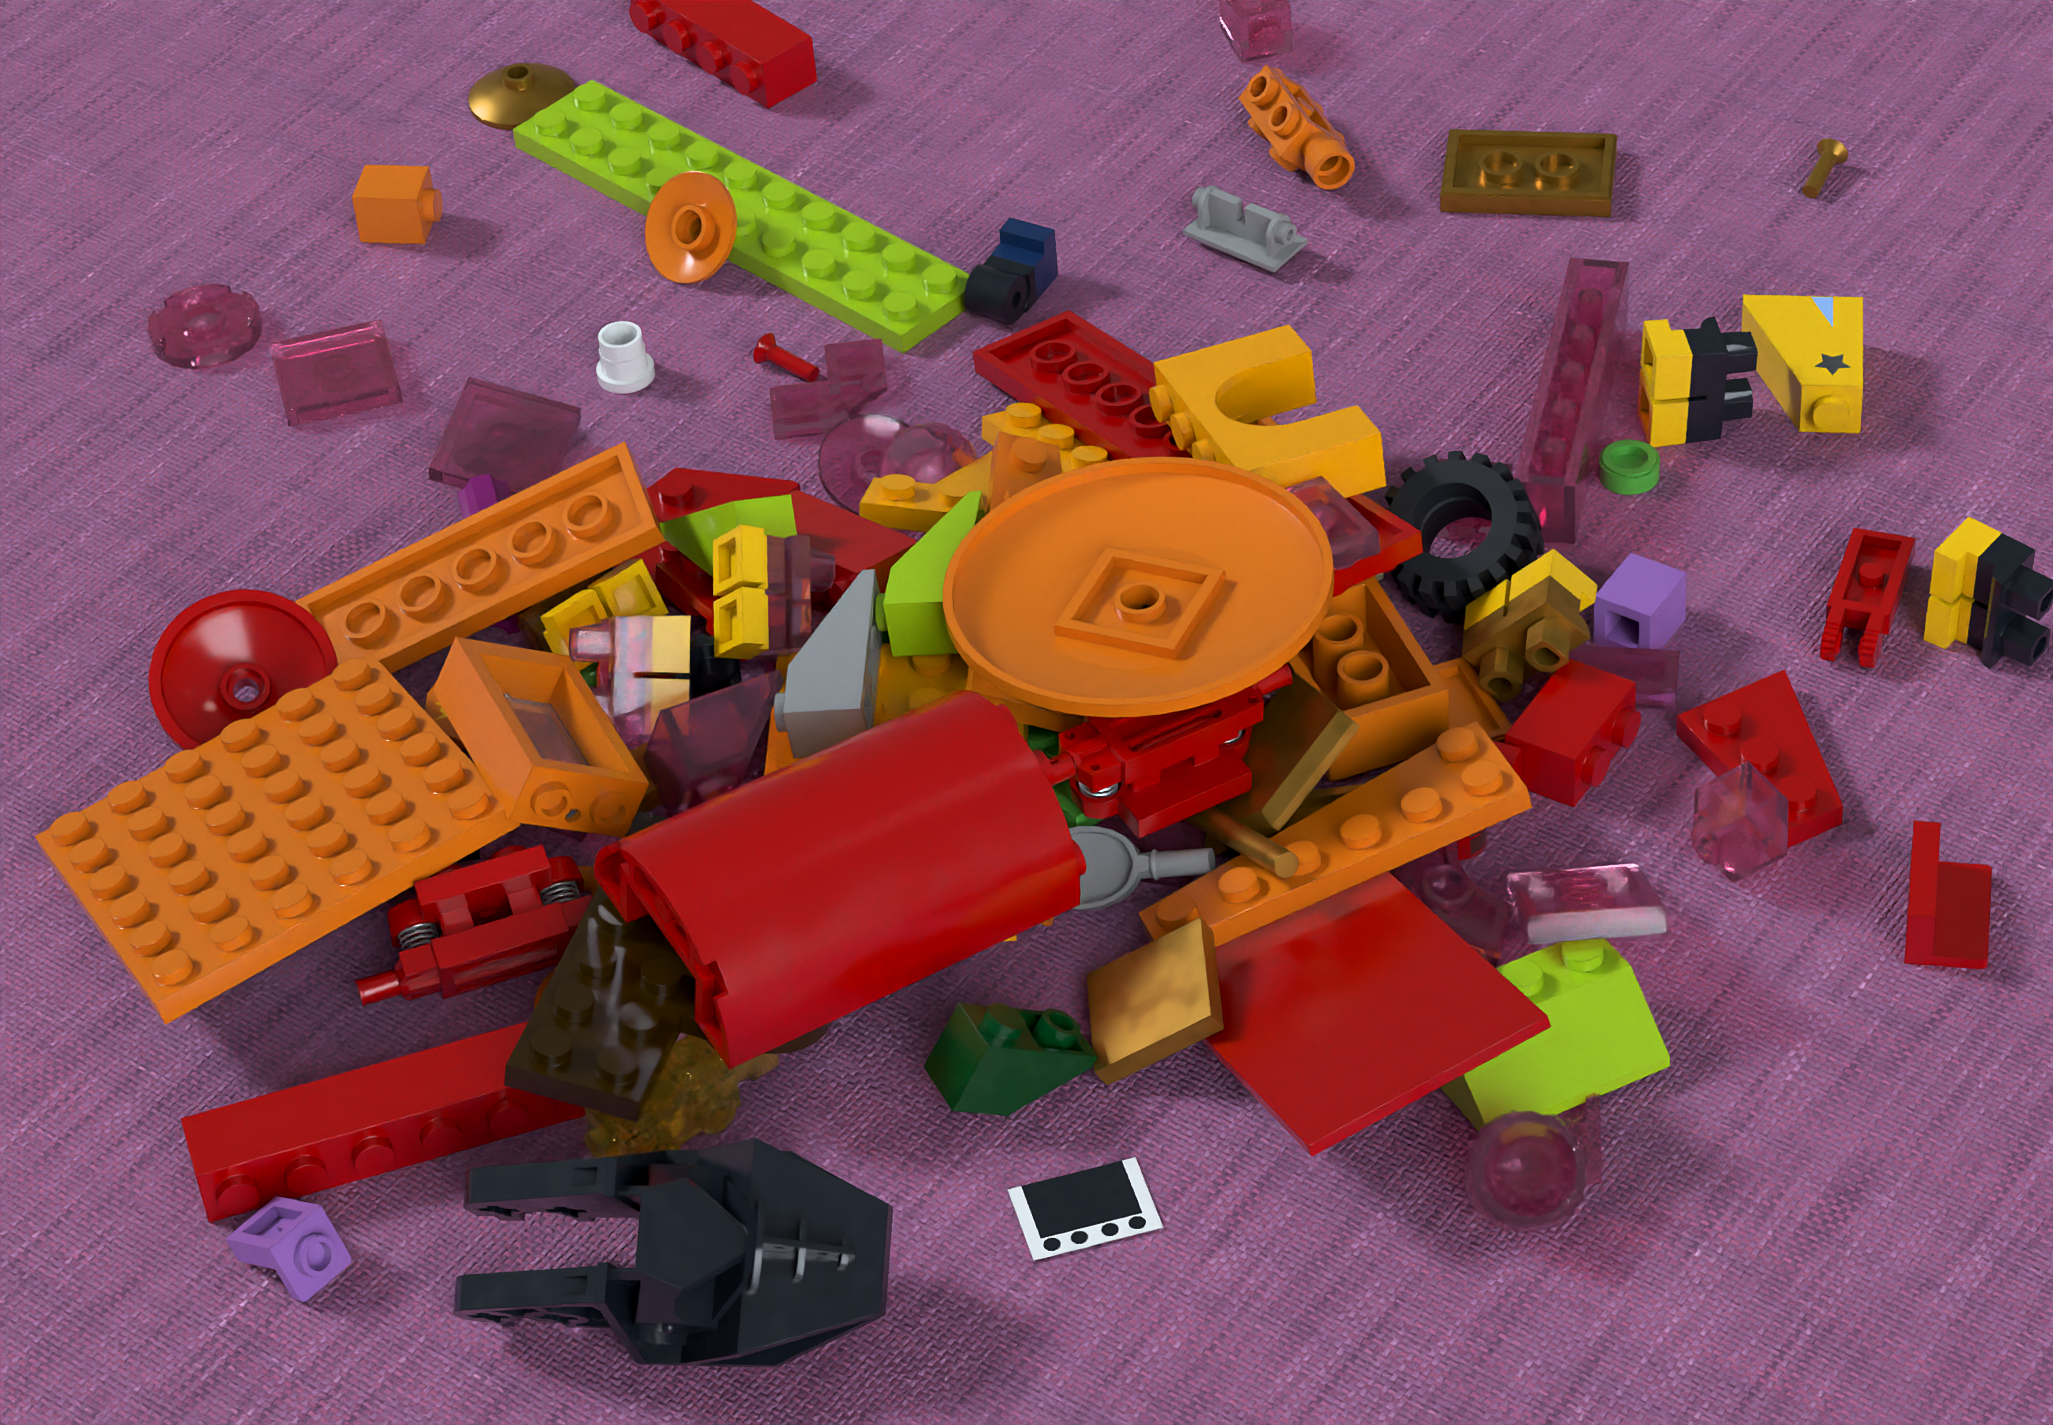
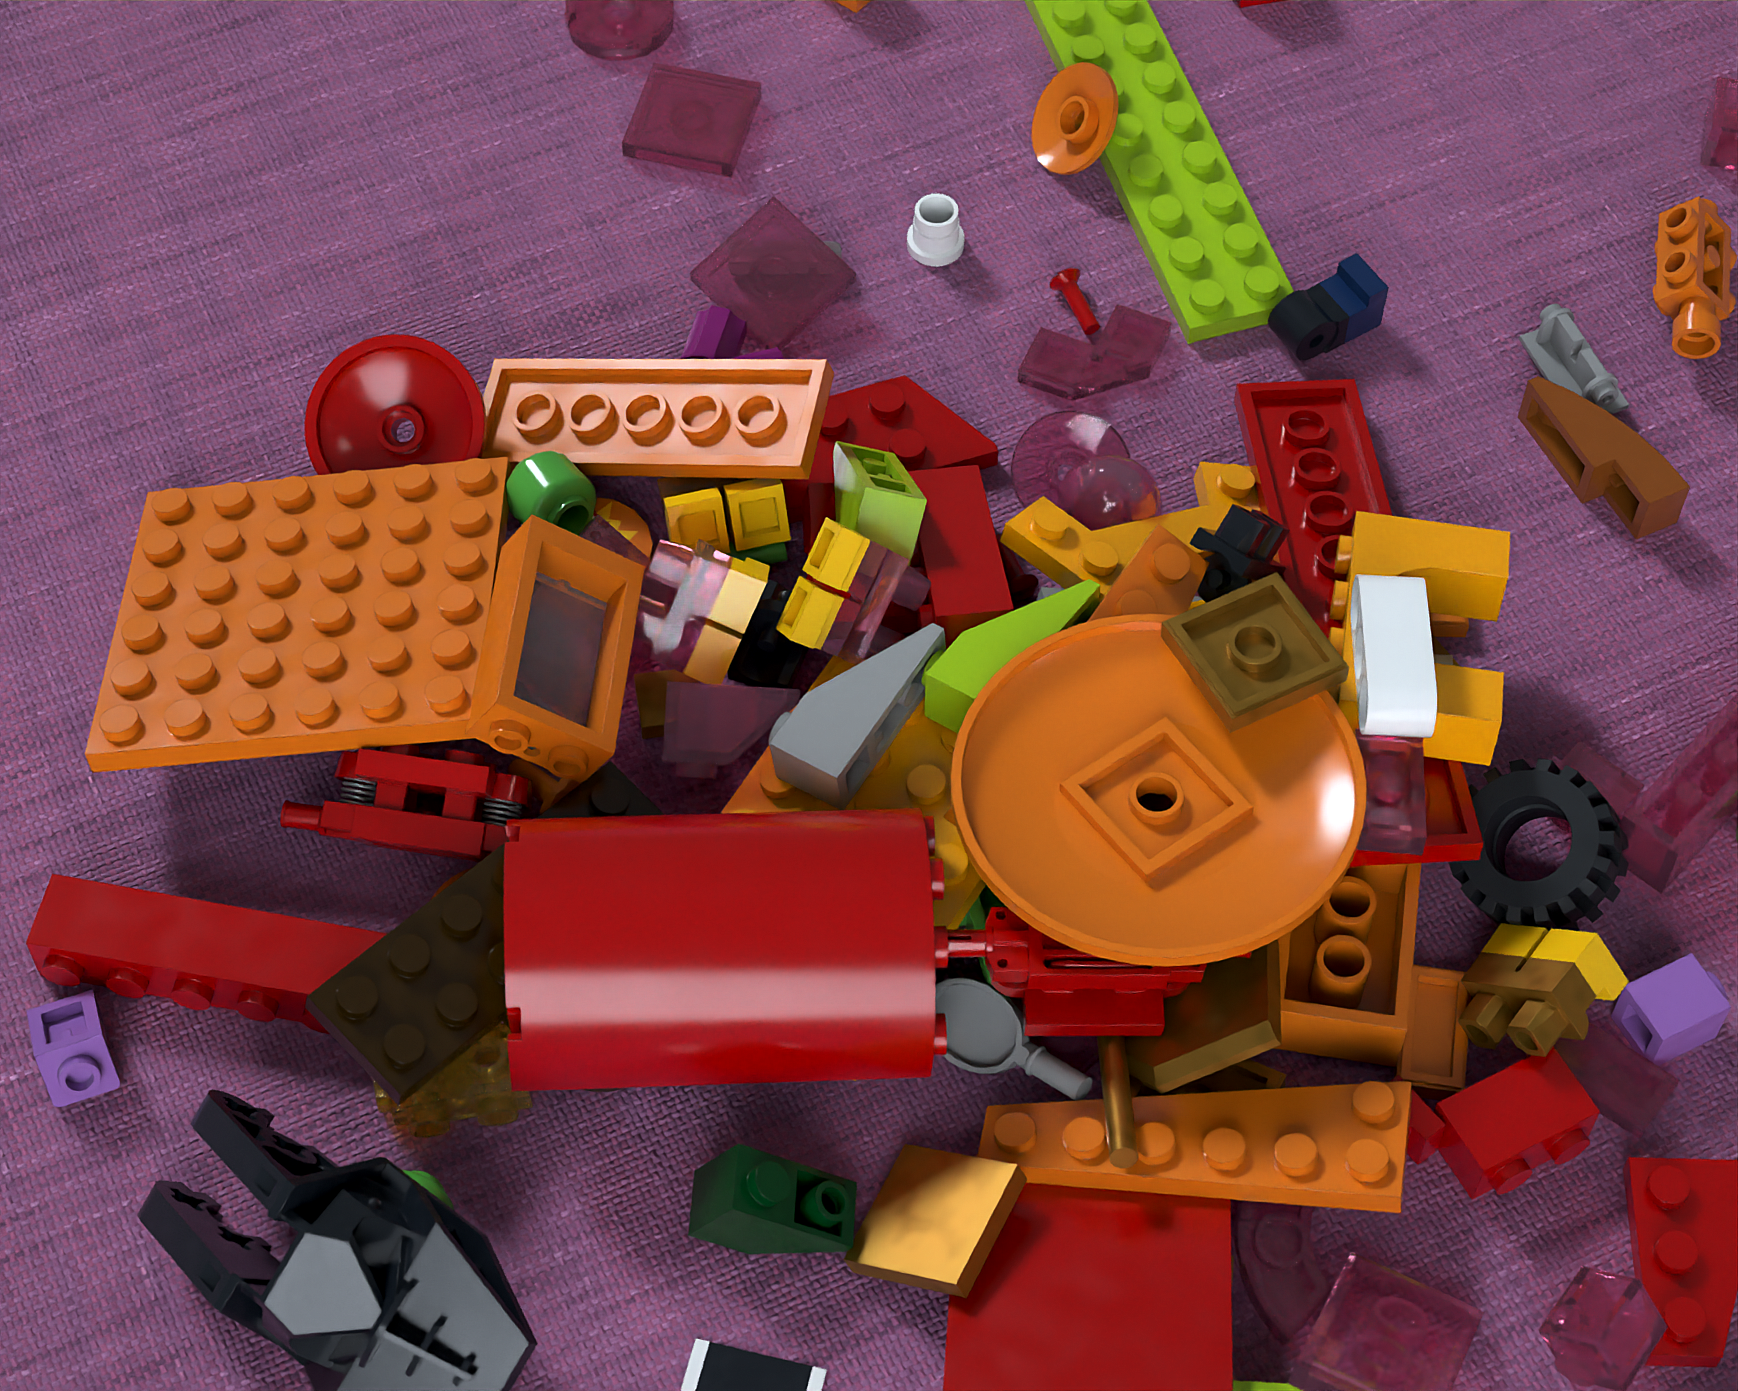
camera: 25 degrees right, 15 degrees up
(417, 660) = (552, 490): none -> bright green head
(1077, 427) = (1241, 551): none -> black hips
(1151, 462) = (1254, 652): none -> pearl gold tile
(1265, 420) = (1393, 656): none -> white beam
(1312, 278) = (1603, 457): none -> dark orange slope

